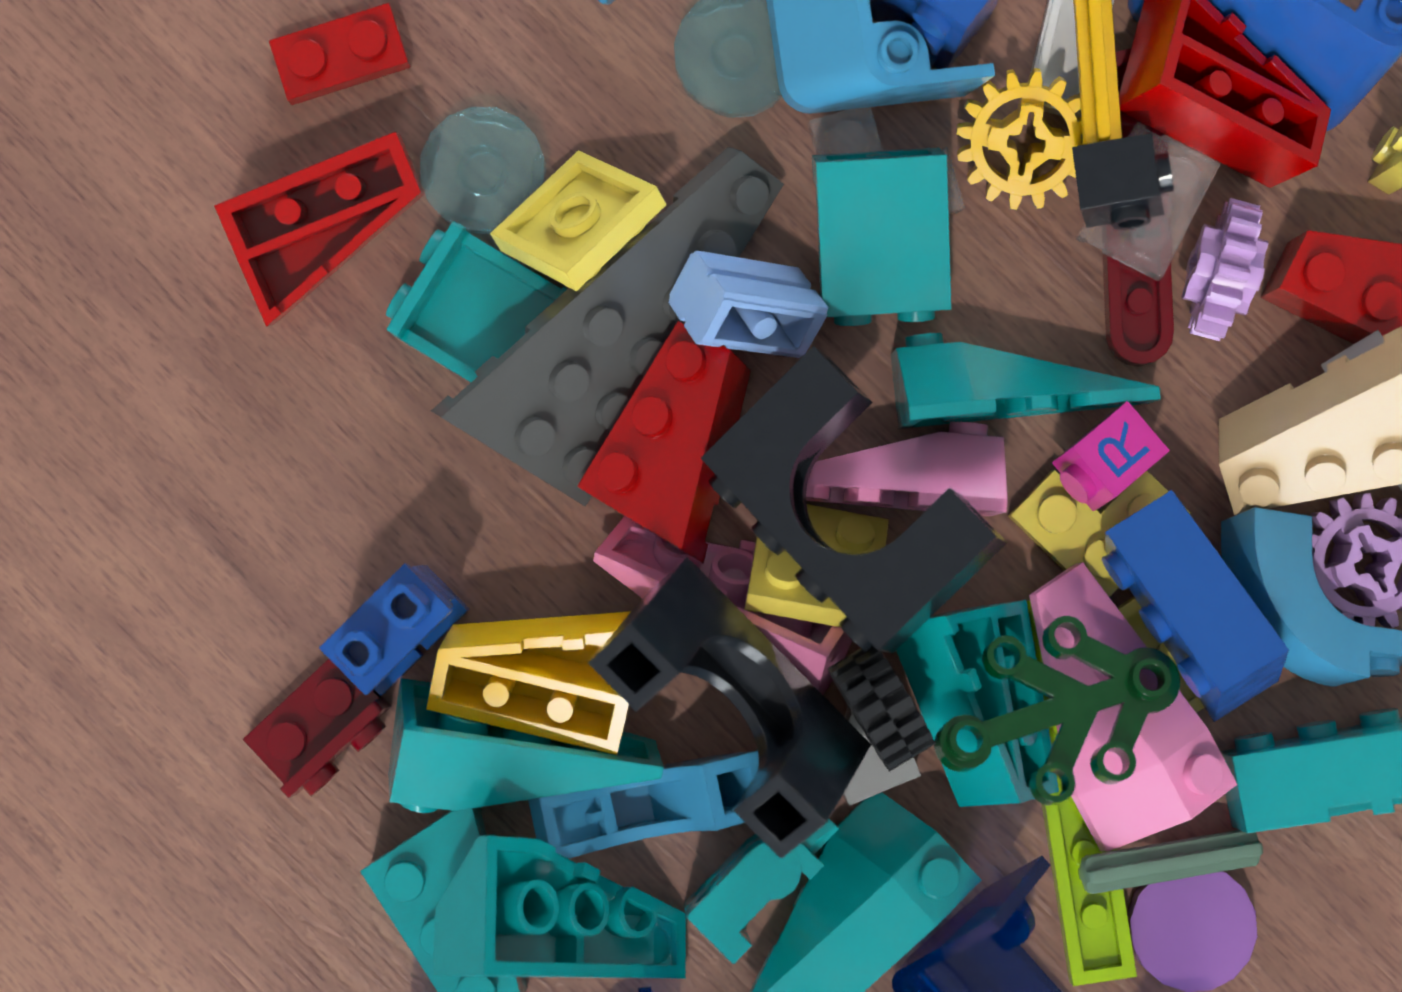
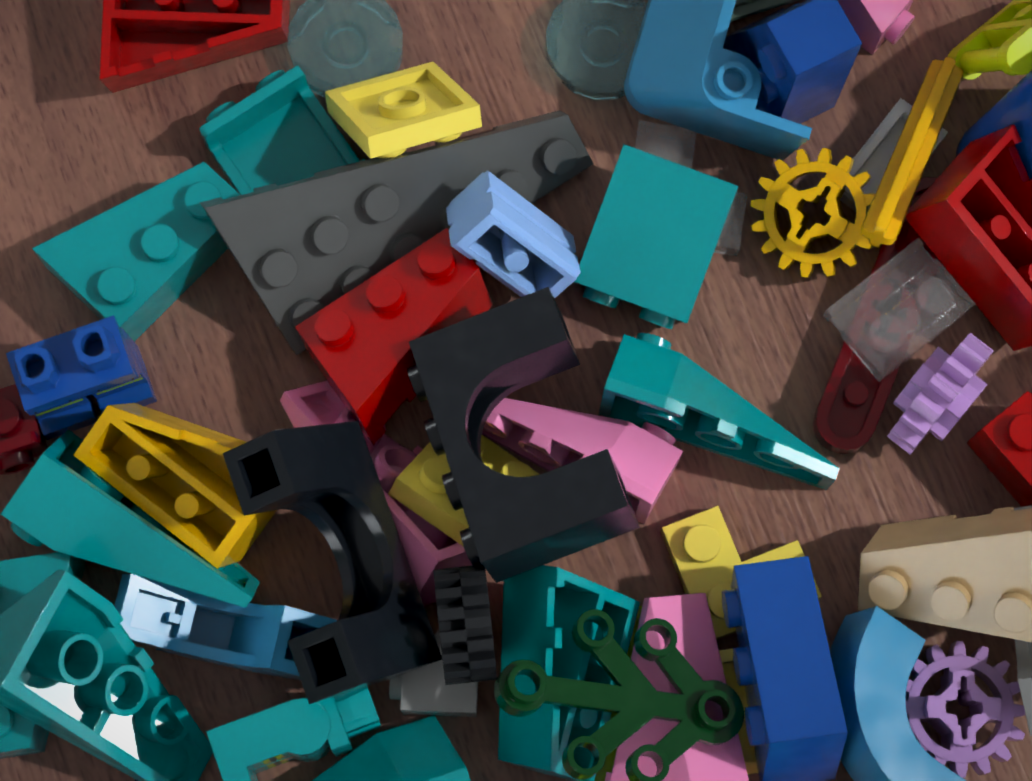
camera: 25 degrees right, 10 degrees down
(390, 474) = (141, 251): none -> teal wedge
(1109, 457) = (768, 509): dark pink brick -> none
(1121, 181) = (879, 274): black brick -> none

